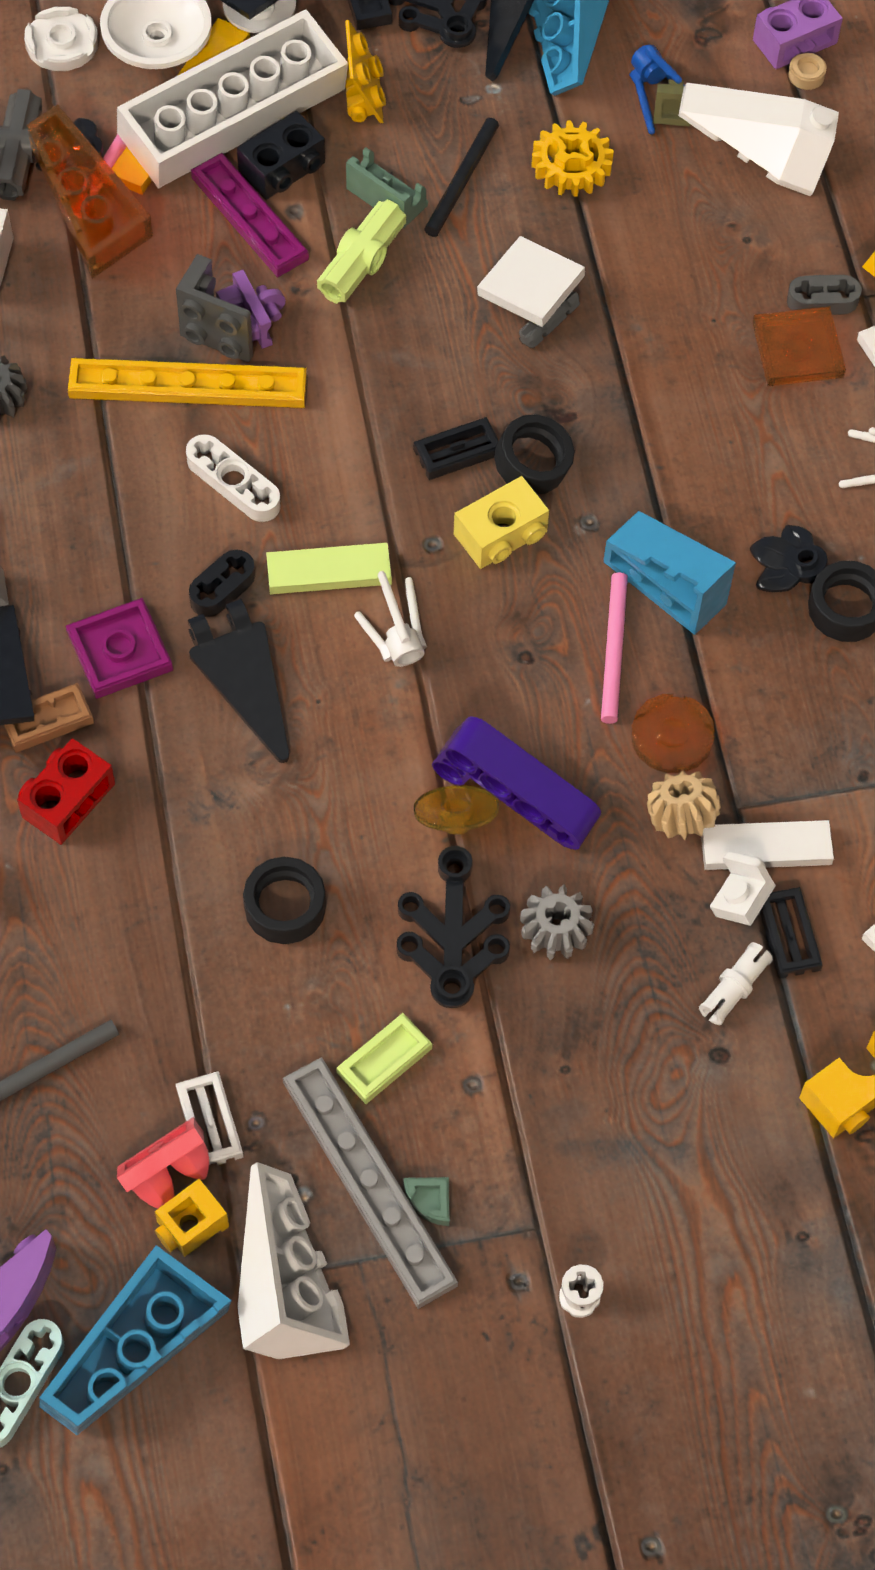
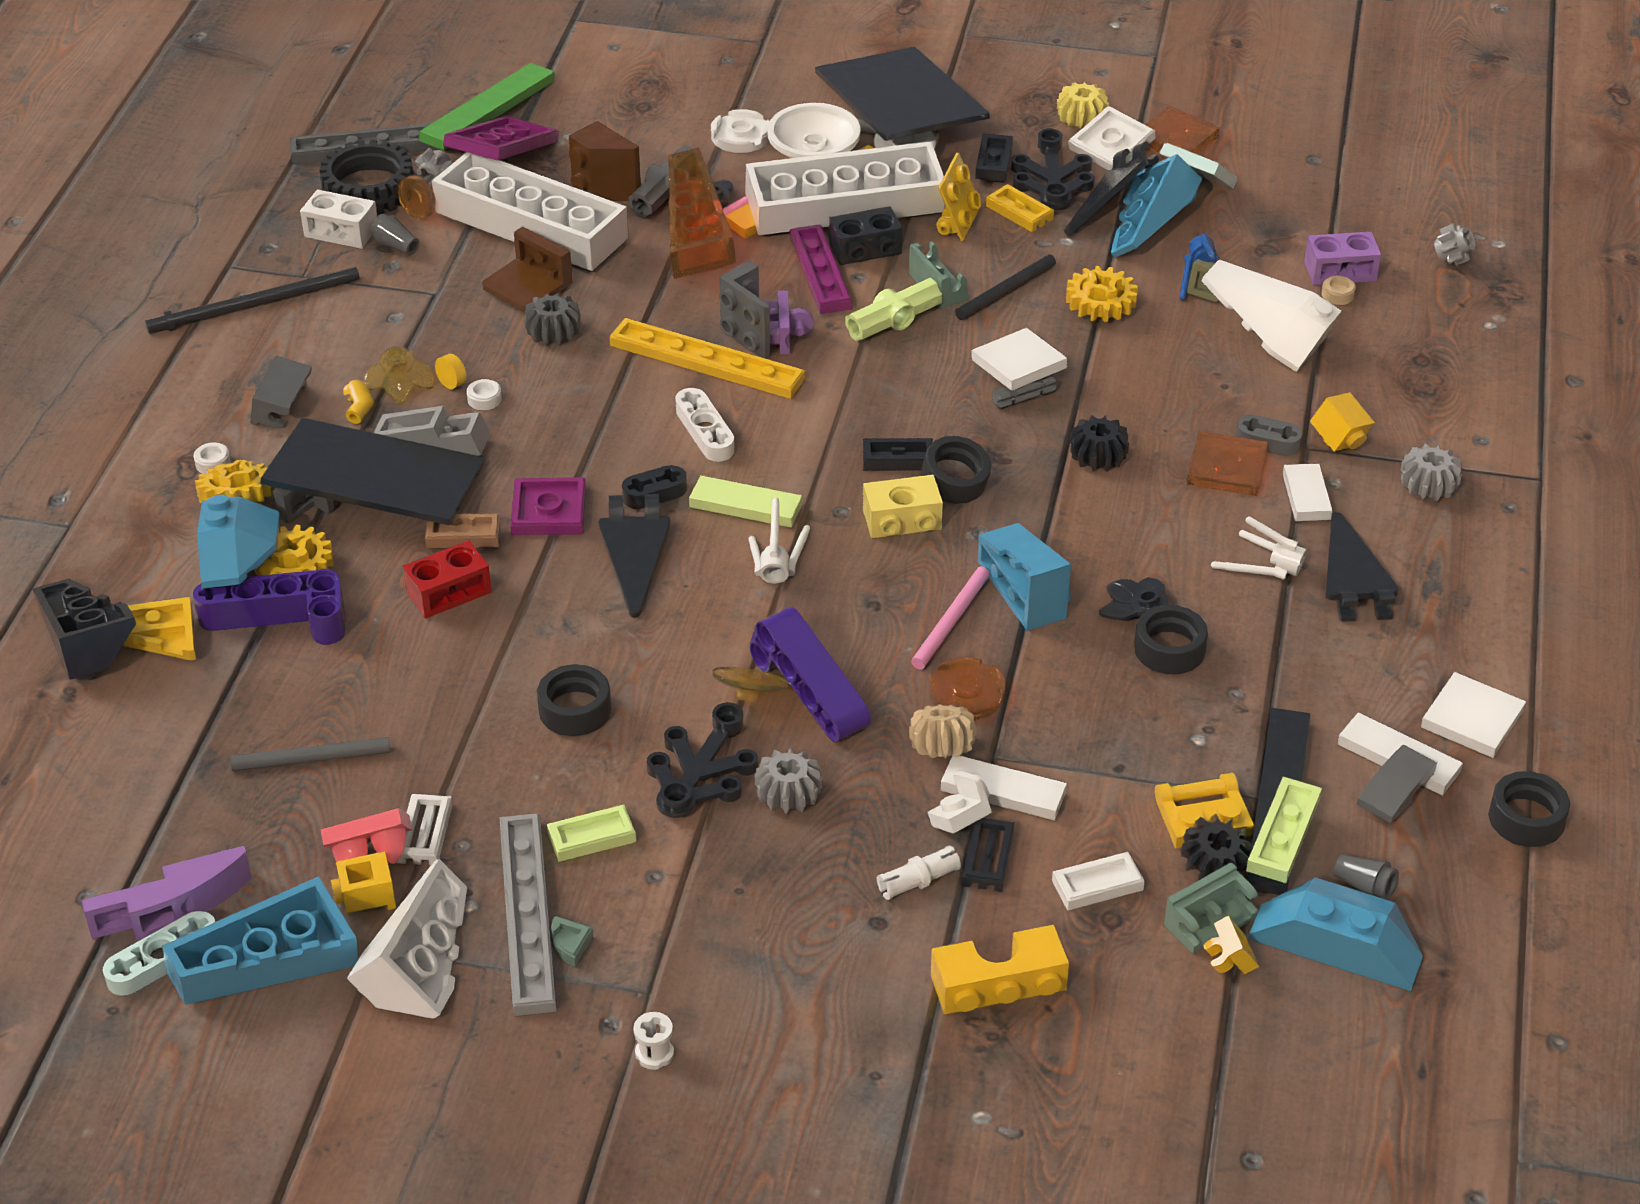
camera: 25 degrees right, 20 degrees down
(421, 62) = (1019, 208): none -> yellow tile
(663, 367) = (1099, 443): none -> black gear

